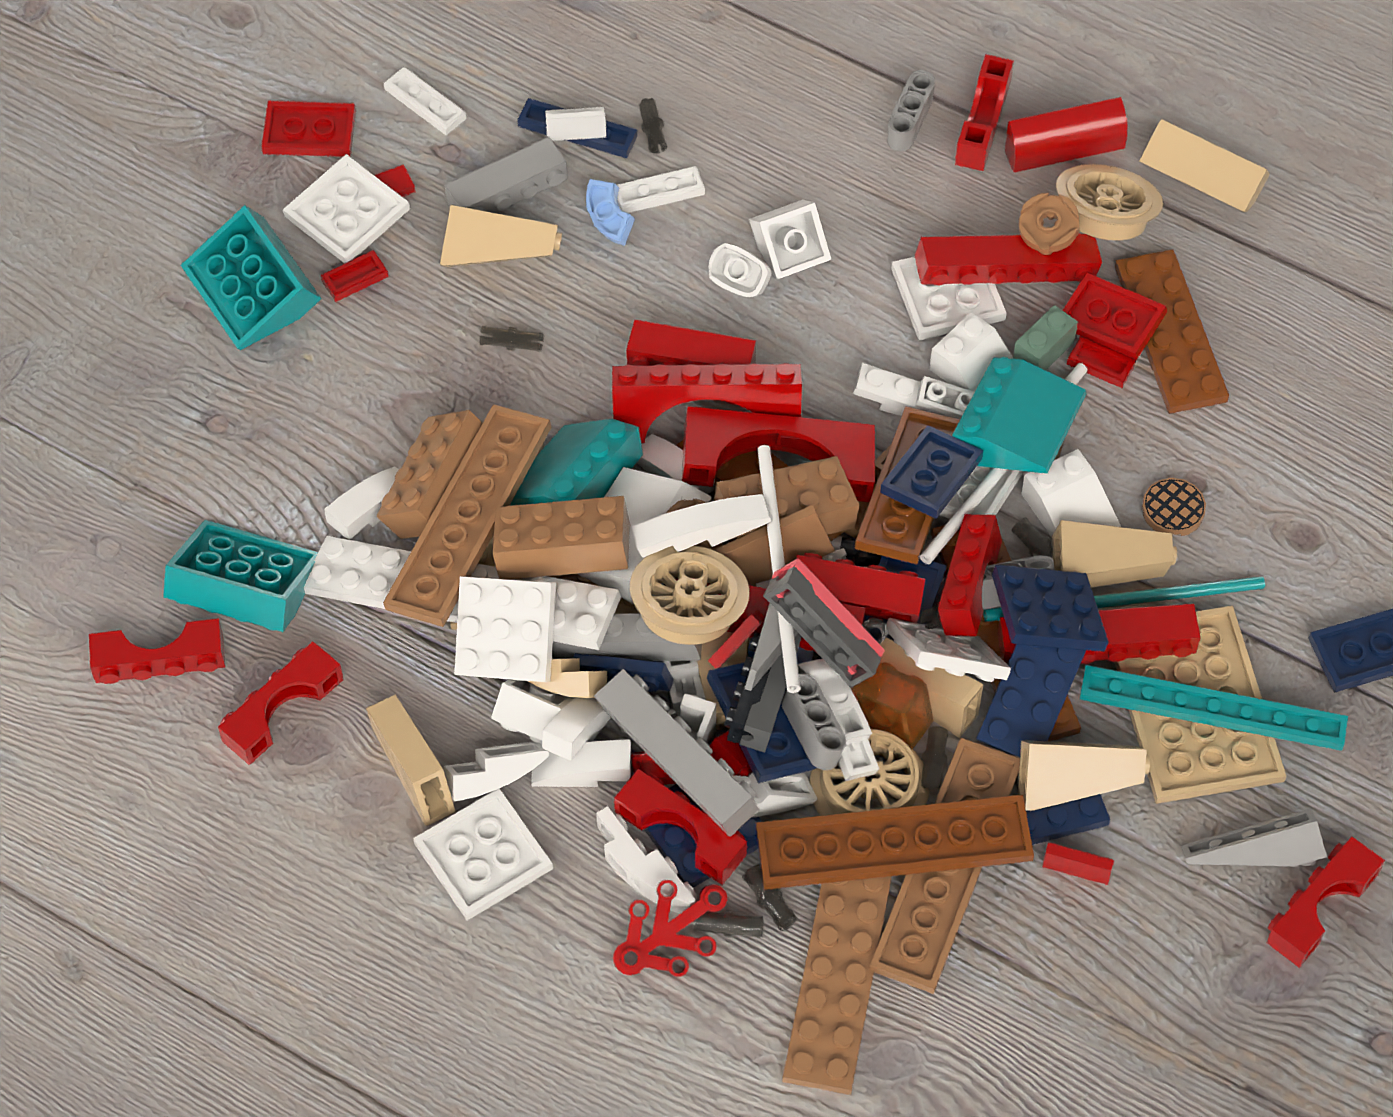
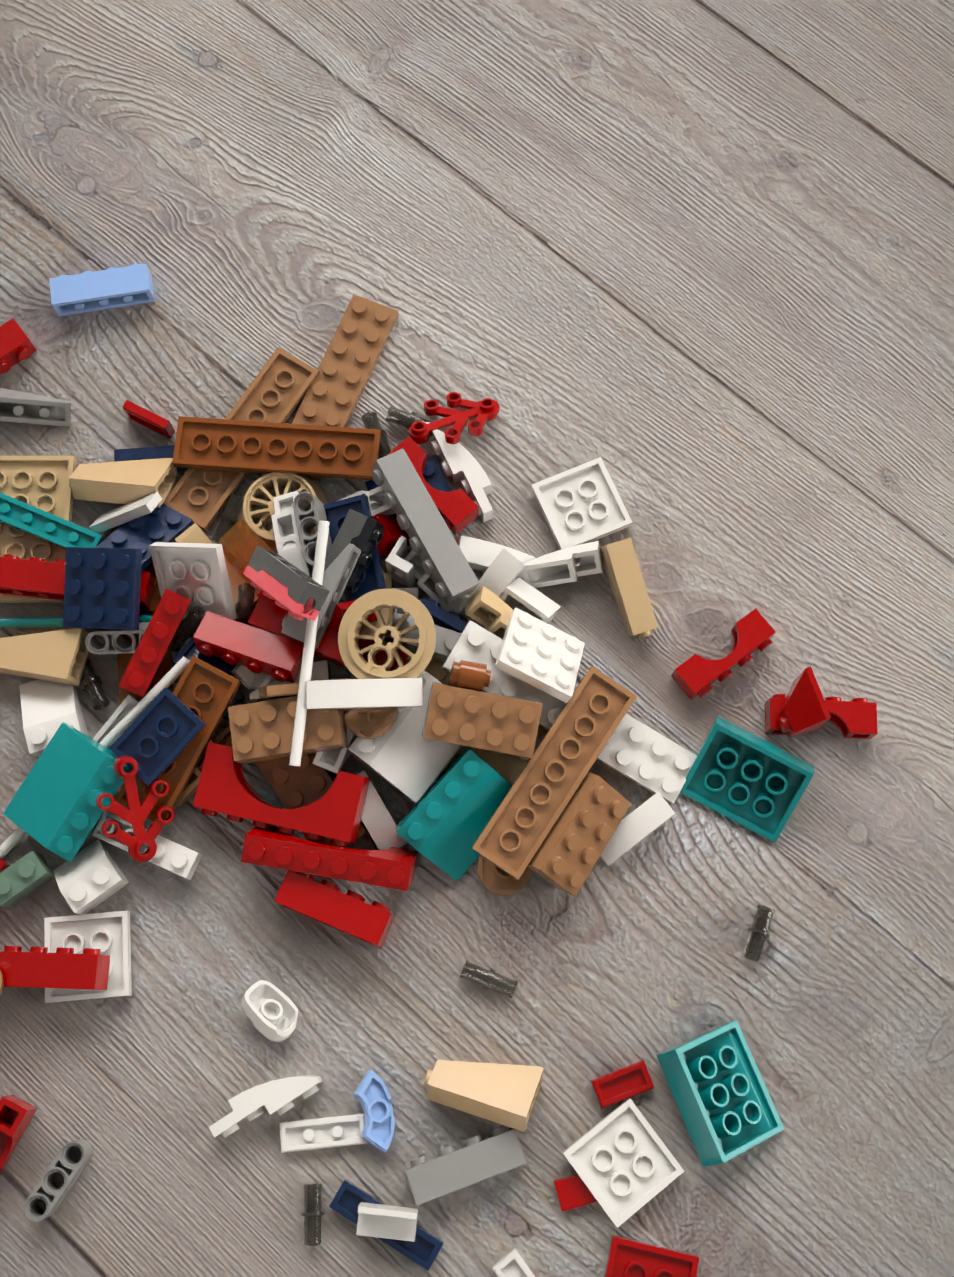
camera: 170 degrees left, 15 degrees up
(183, 626) = (803, 706): none -> red slope
(218, 428) = (758, 933): none -> clear smoke axle
(583, 573) = (470, 675): none -> dark orange brick
(718, 206) = (274, 1095): none -> white slope
(790, 238) = (213, 1044): white slope -> none
(919, 379) = (136, 813): none -> red plant
(1060, 724) = (126, 513): none -> white tile
(1204, 1030) = (101, 289): none -> light blue brick

